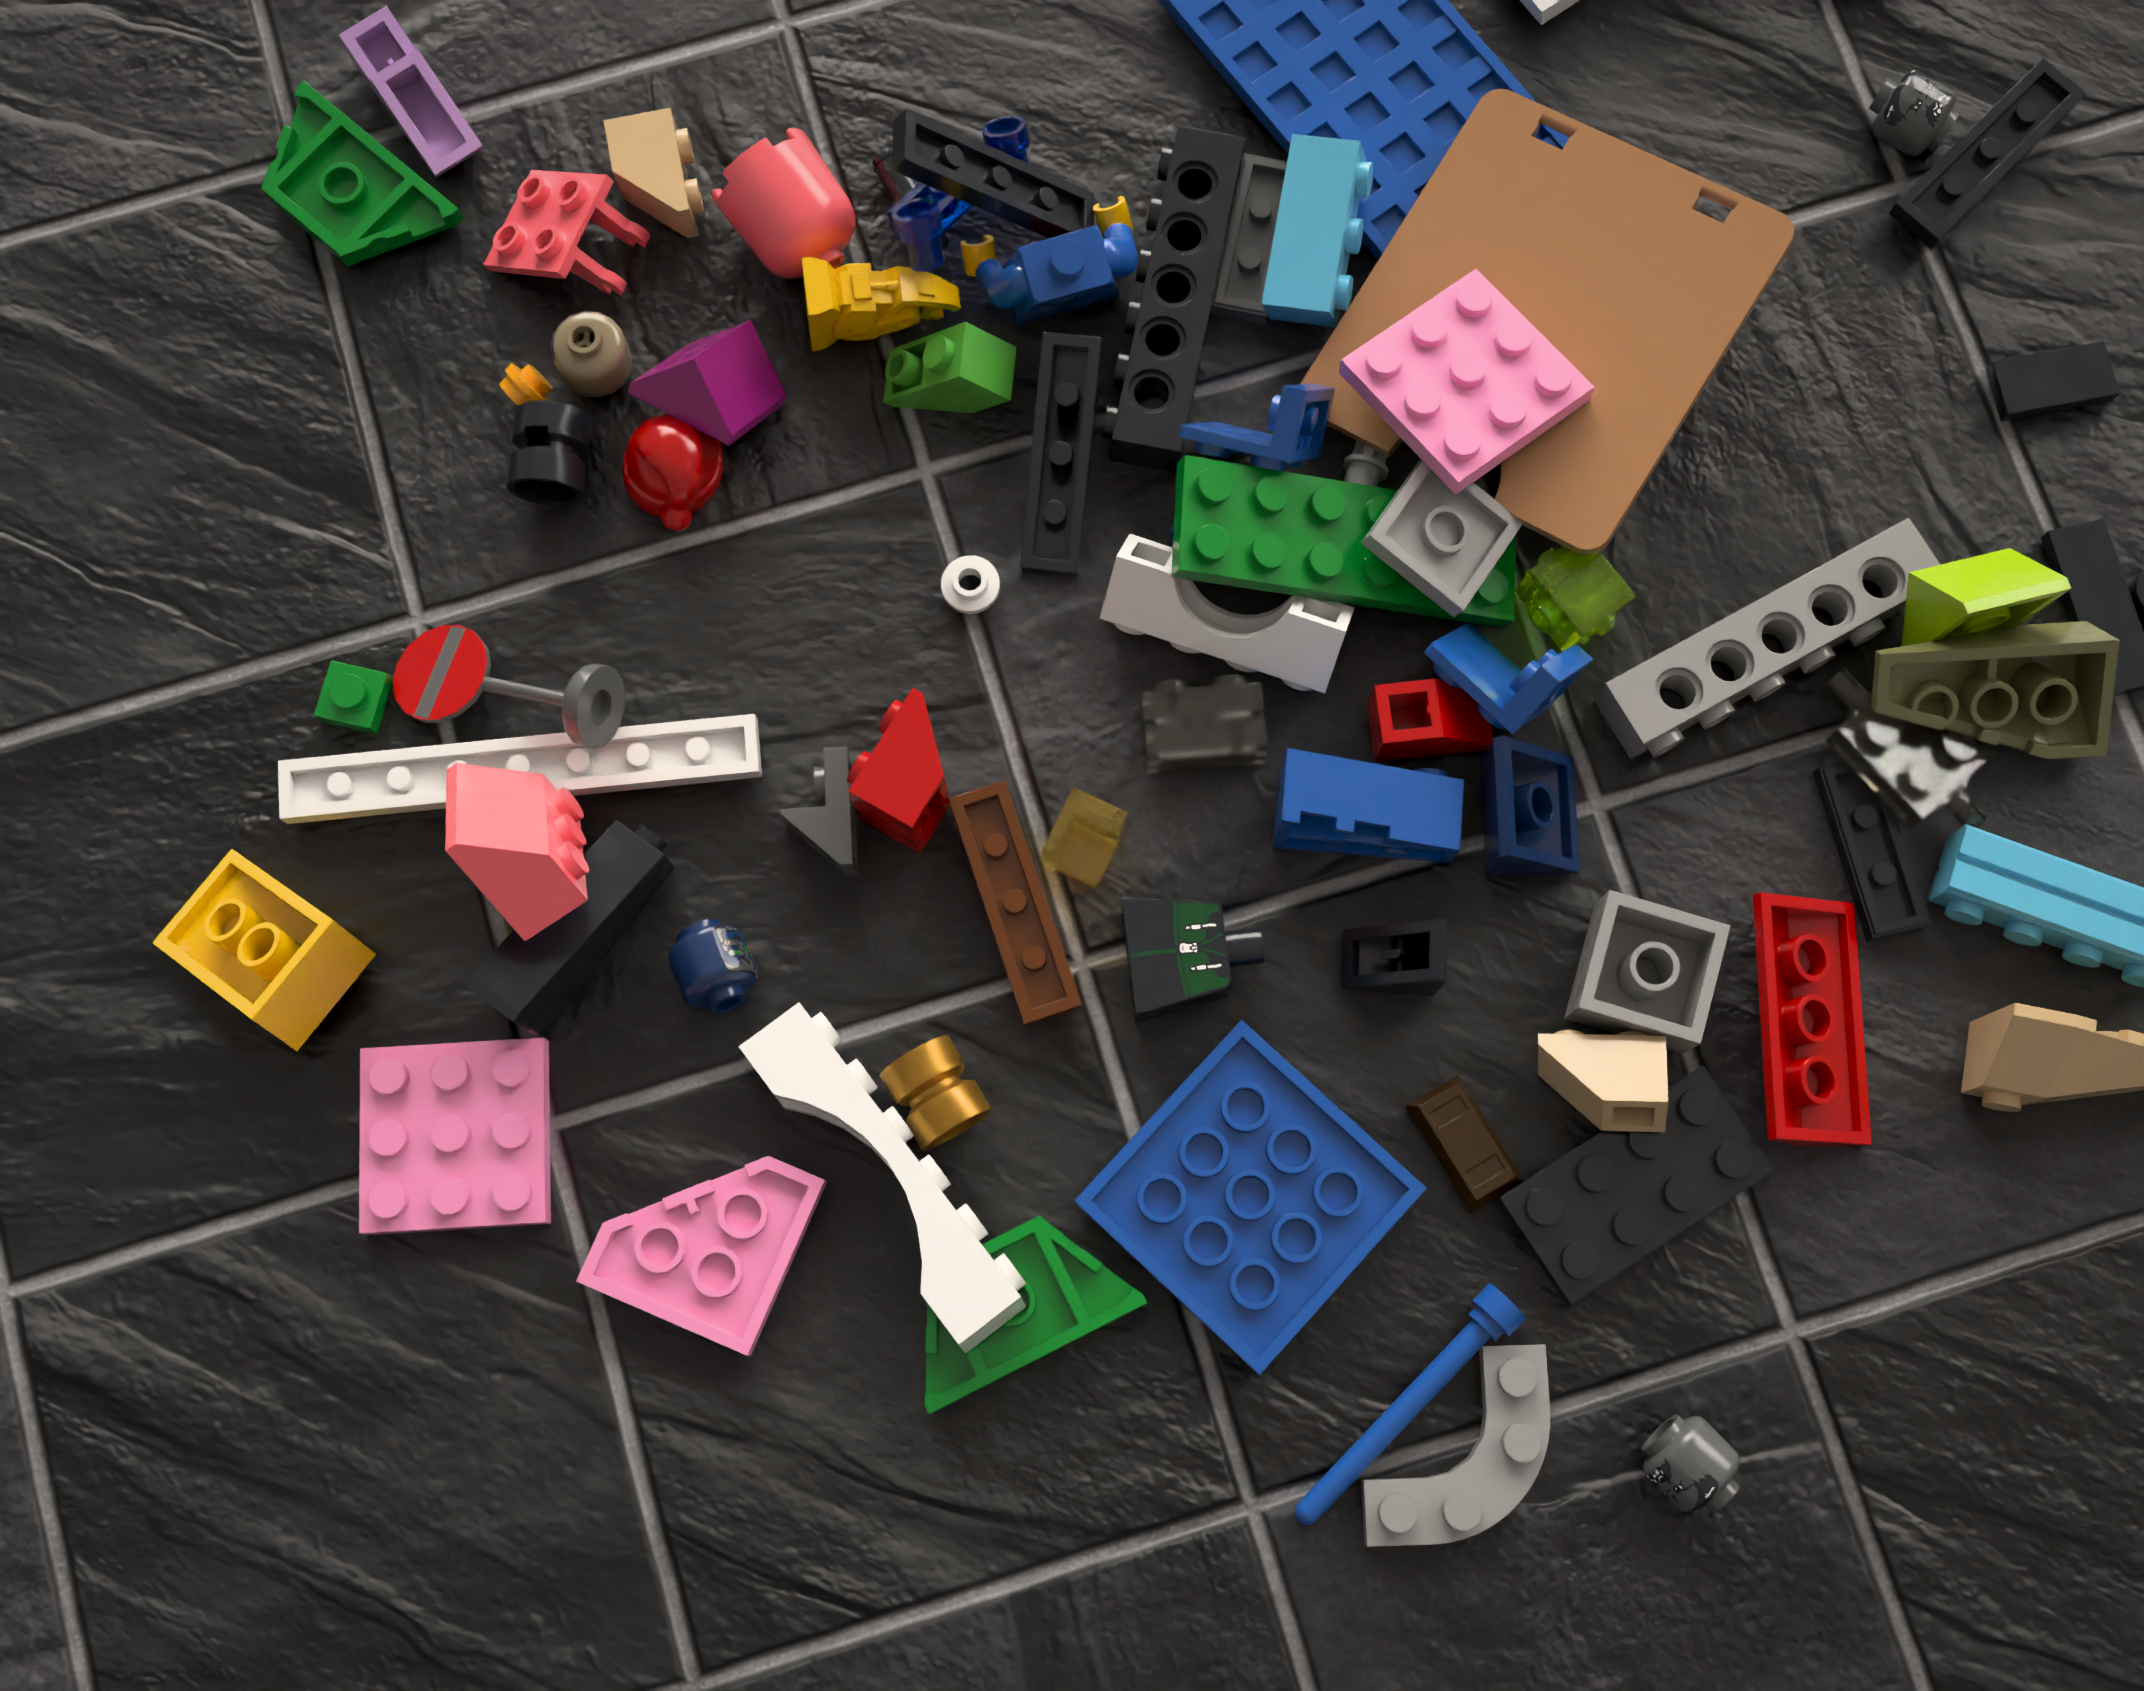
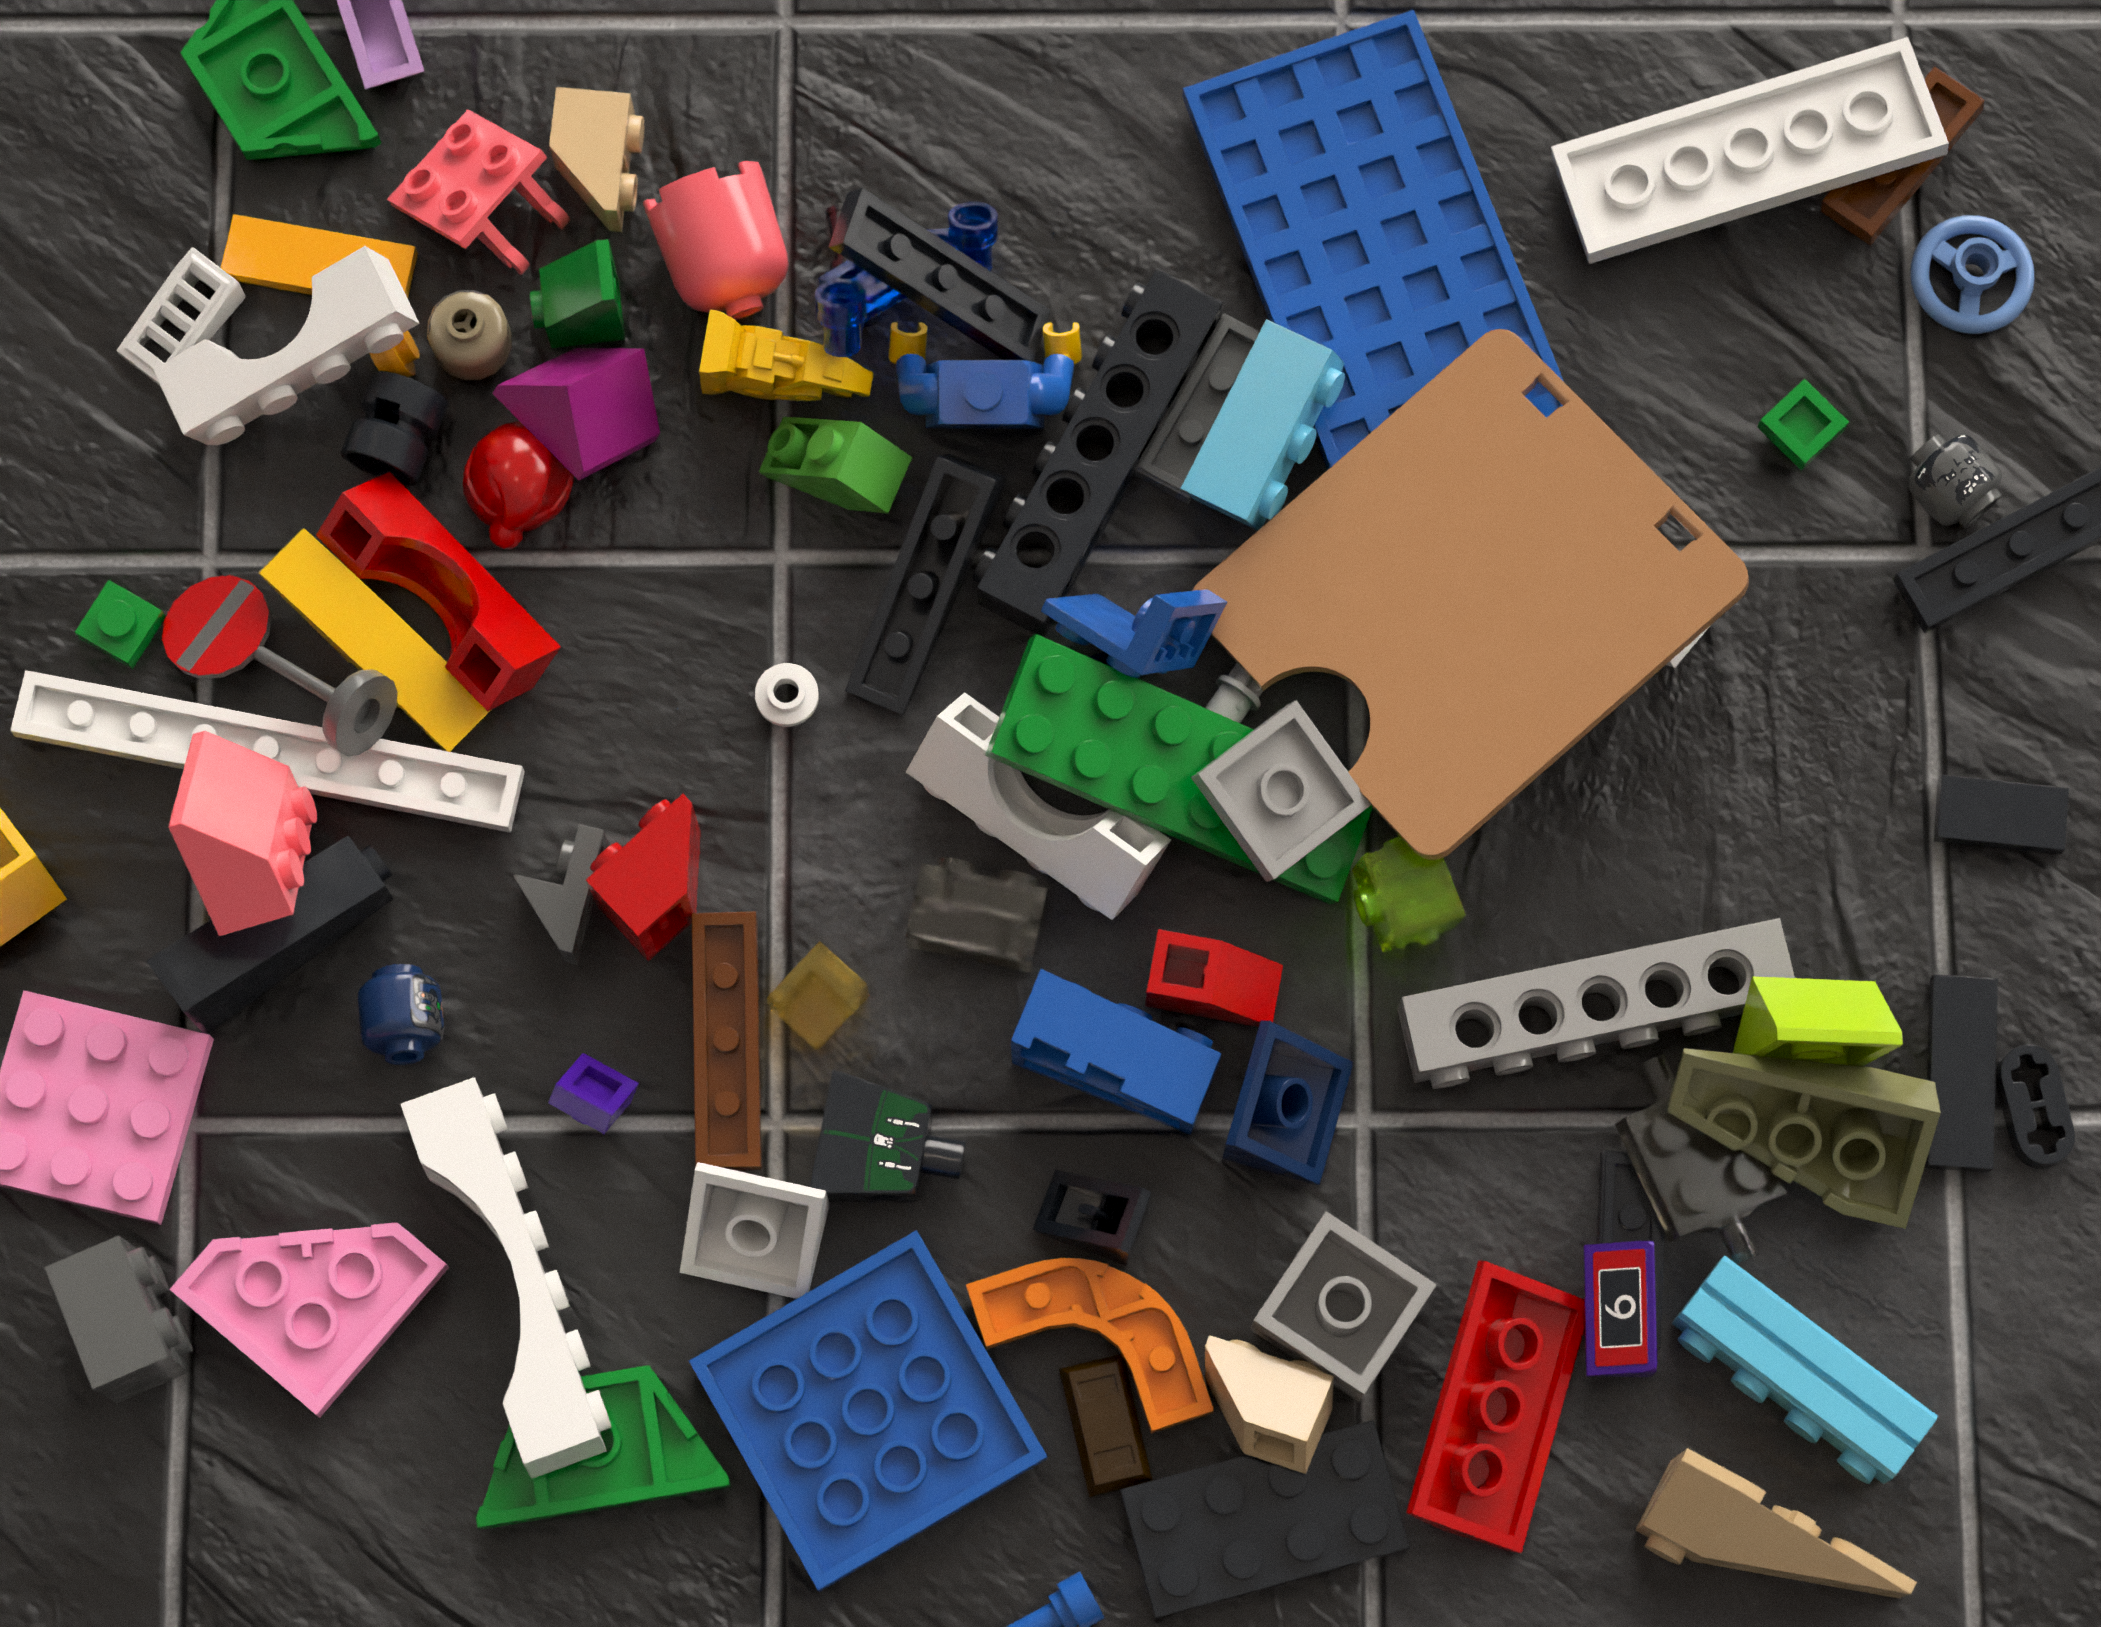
camera: 15 degrees right, 0 degrees up
(320, 388) = (179, 286): none -> white slope
(438, 334) = (290, 254): none -> light orange tile
(480, 362) = (352, 313): none -> white arch
(536, 1323) = (119, 1318): none -> dark grey brick
(578, 548) = (393, 538): none -> red arch
(581, 636) = (372, 637): none -> yellow slope
(680, 293) = (580, 298): none -> green slope
(909, 985) = (593, 1093): none -> dark purple plate
(931, 1086) = (584, 1211): pearl gold wheel -> none
(1095, 1065) = (753, 1231): none -> white slope
(1439, 1035) = (1107, 1303): none -> orange plate
(1465, 380) = (1356, 638): bright pink plate -> none
(1504, 692) = (1292, 961): blue bracket -> none
(1769, 105) = (1803, 424): none -> green plate
(1891, 899) = (1620, 1309): none -> slope

